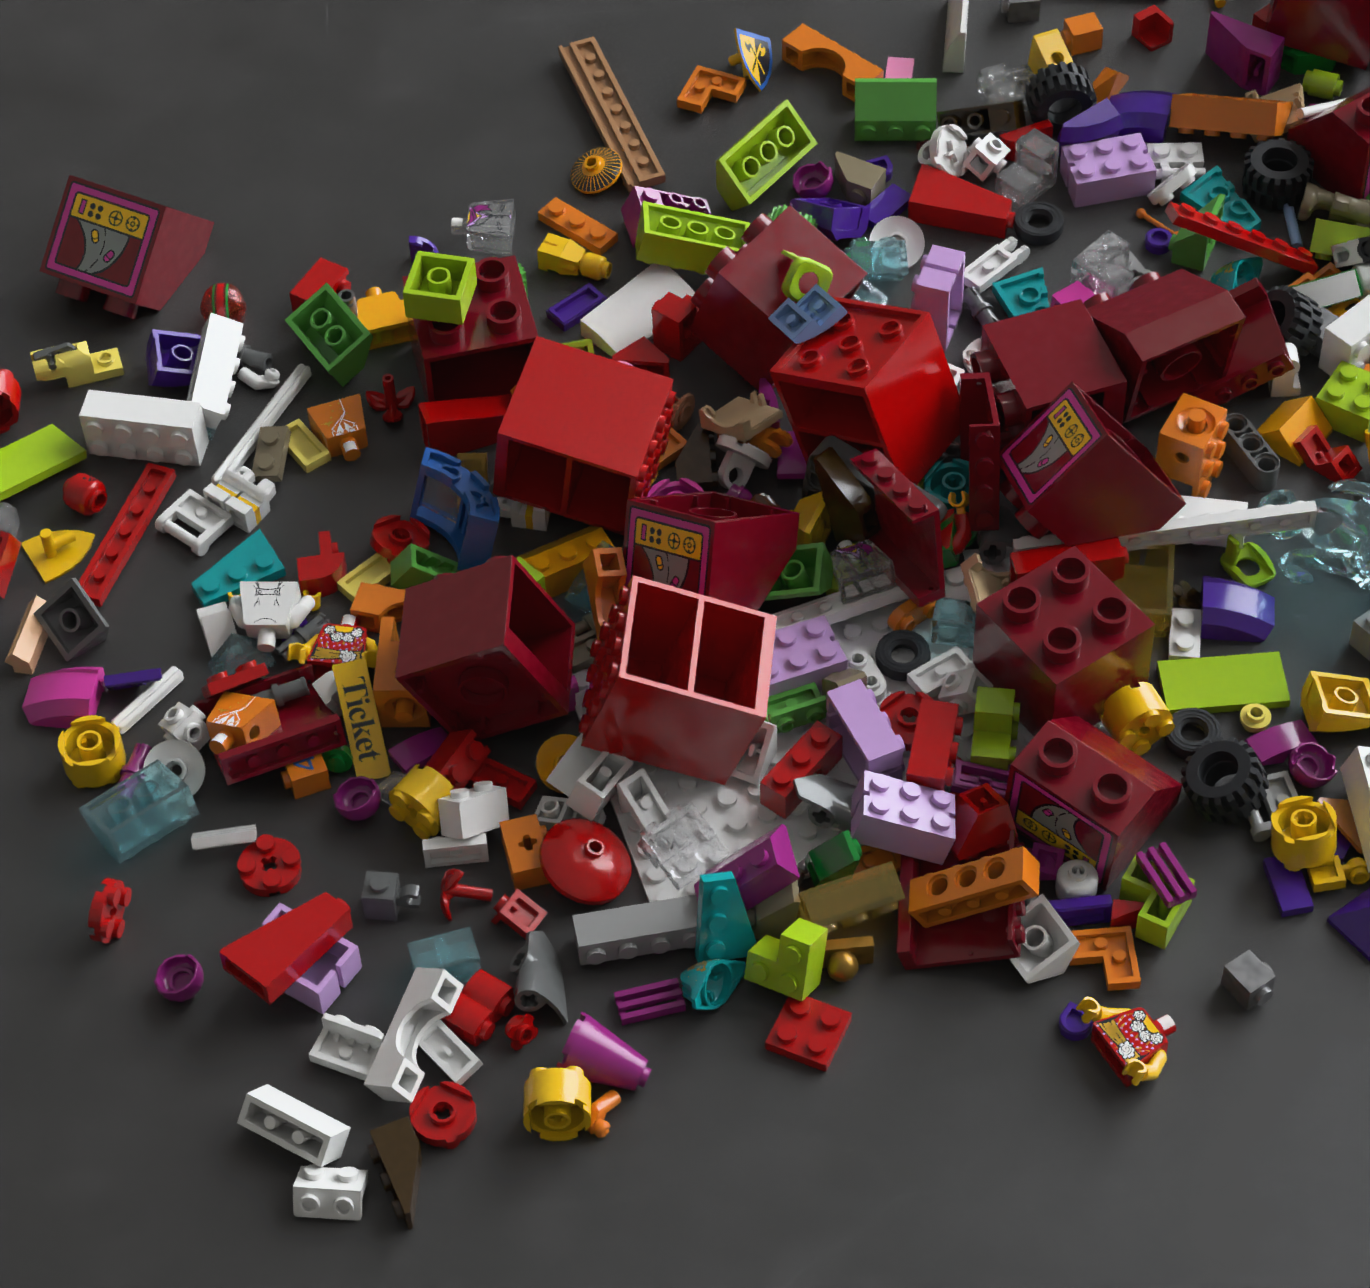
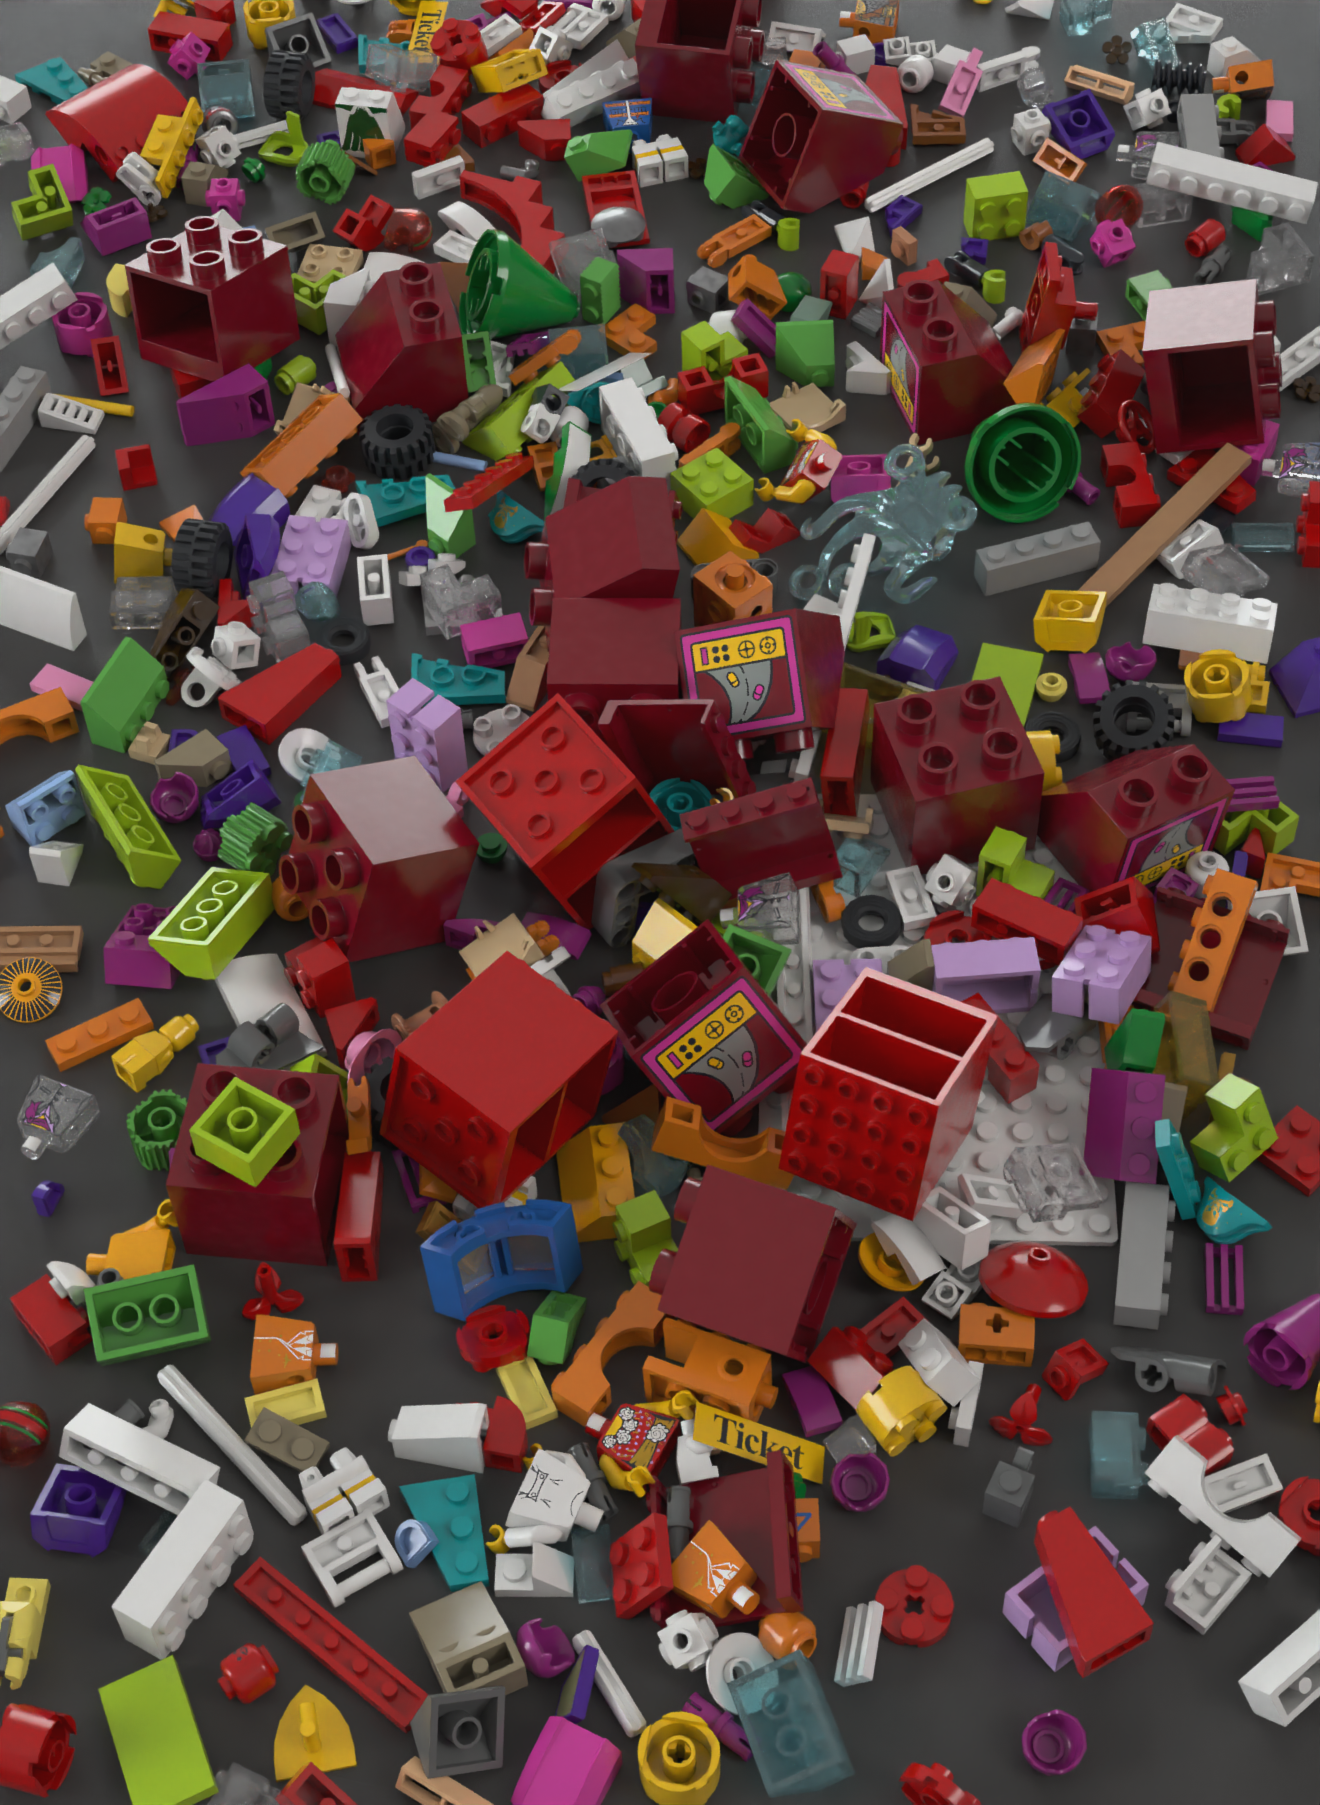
camera: 70 degrees left, 0 degrees up
(143, 607) = (469, 1642): none -> dark tan slope
(156, 648) = (544, 1650): none -> magenta hair
(212, 791) = (787, 1633): none -> orange head
(218, 551) = (414, 1541): none -> medium blue tile
(302, 531) = (441, 1435): none -> white slope
(341, 277) = (69, 1281): none -> white slope
(594, 314) = (269, 1043): none -> dark grey panel
(719, 134) = (55, 861): none -> white slope
(755, 104) = (47, 808): none -> light blue slope
(798, 268) = (414, 783): lime piece -> none
(808, 316) = (473, 809): medium blue slope -> none
(865, 147) = (149, 744): none -> tan tile
(1060, 189) = (317, 602): none -> clear light blue rock
(1094, 216) = (375, 589): none -> white brick
(1149, 252) = (412, 577): none -> white slope
(1218, 155) = (338, 478): none -> clear red plate

